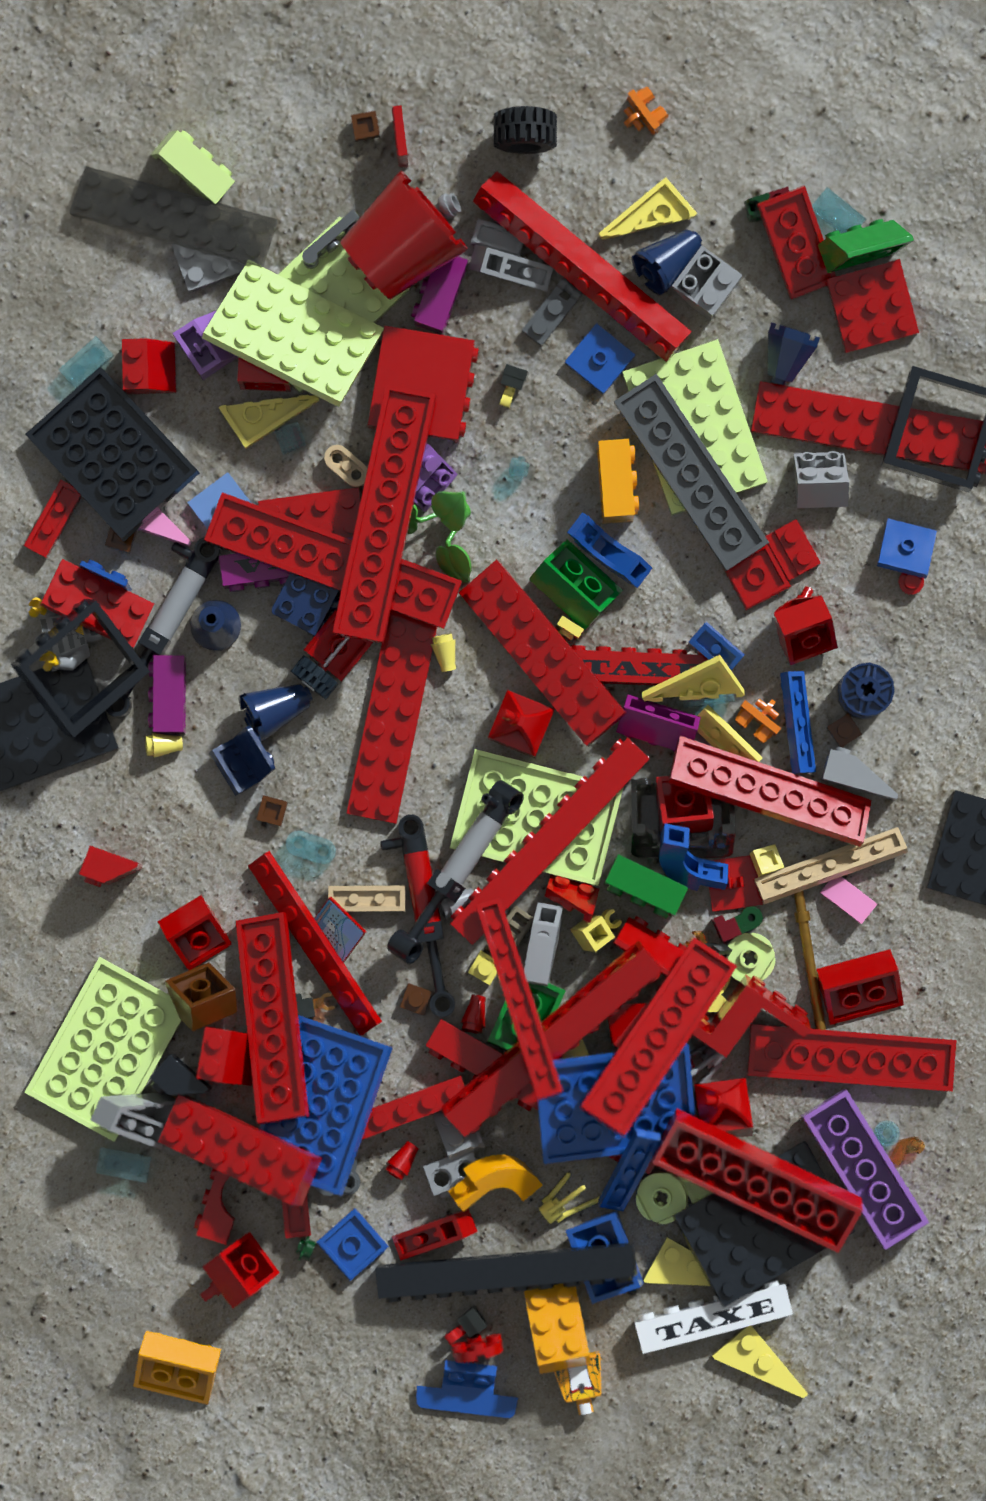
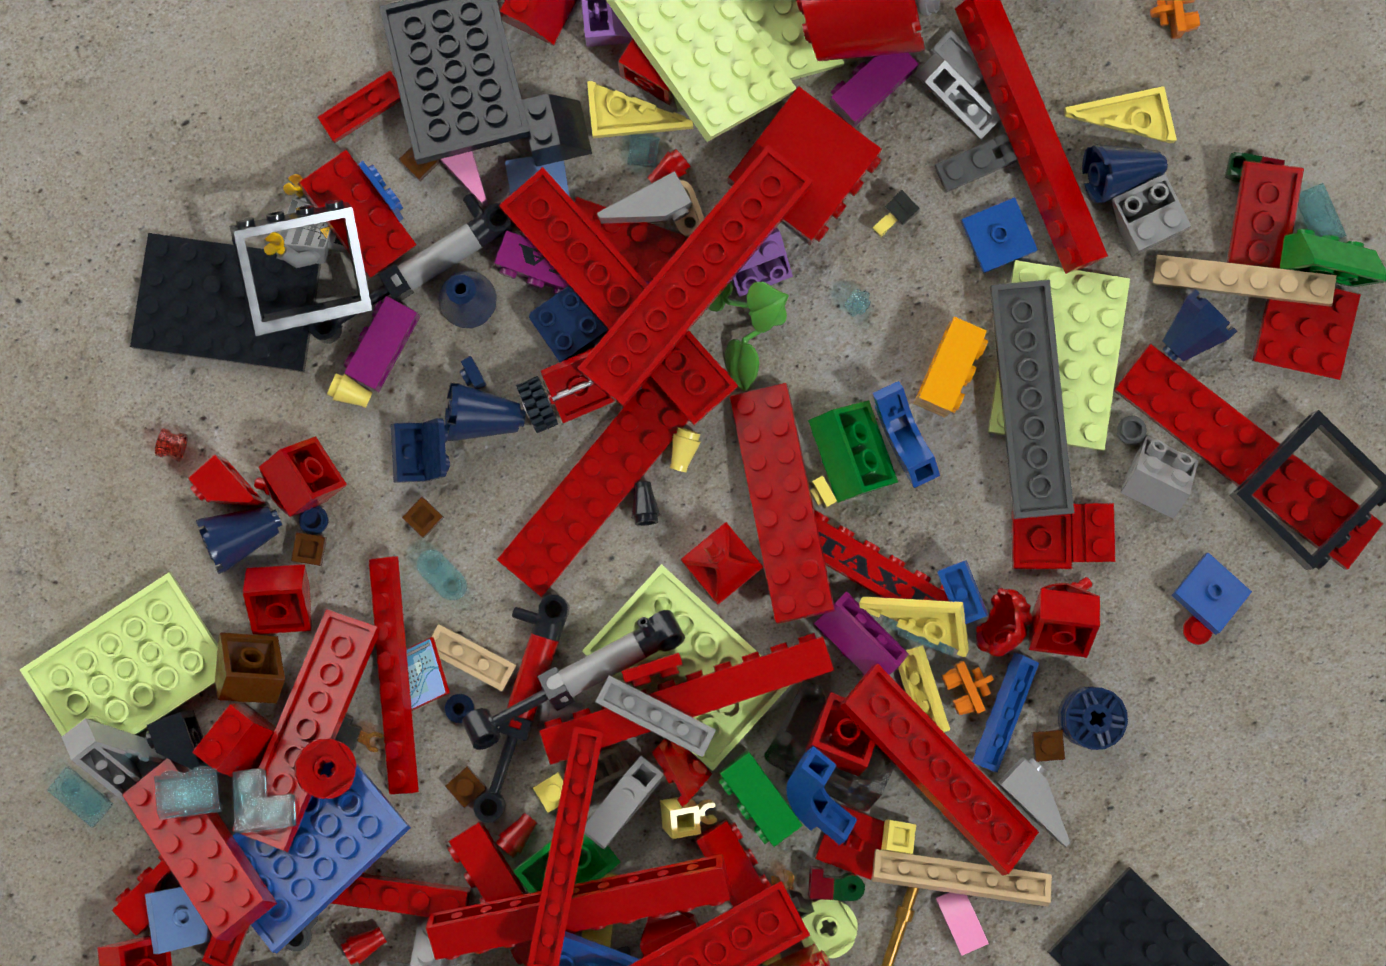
camera: 30 degrees right, 0 degrees up
(47, 858) = (171, 445): none -> clear red wheel
(136, 900) = (237, 534): none -> dark blue cone
(161, 830) = (300, 477): none -> red piece
(188, 858) = (314, 520): none -> dark blue plate
(197, 882) = (309, 549): none -> reddish brown plate
(210, 1109) = (187, 793): none -> clear light blue brick
(215, 457) = (556, 129): none -> black slope
(249, 1215) = (174, 921): none -> medium blue plate
(250, 680) = (472, 374): none -> dark blue plate
(268, 1097) = (254, 809): none -> clear light blue plate
(298, 1023) = (308, 765): none -> red plate
(318, 441) = (671, 162): none -> red cone
(322, 474) = (653, 203): none -> light grey slope
(370, 941) = (452, 701): none -> dark blue plate
(437, 710) = (644, 508): none -> black cone
(520, 823) = (641, 674): none -> red plate
(533, 864) = (655, 716): none -> light grey plate
(762, 654) = (1005, 623): none -> red hair
(780, 455) = (1131, 430): none -> dark grey plate
(805, 295) = (1244, 280): none -> tan plate

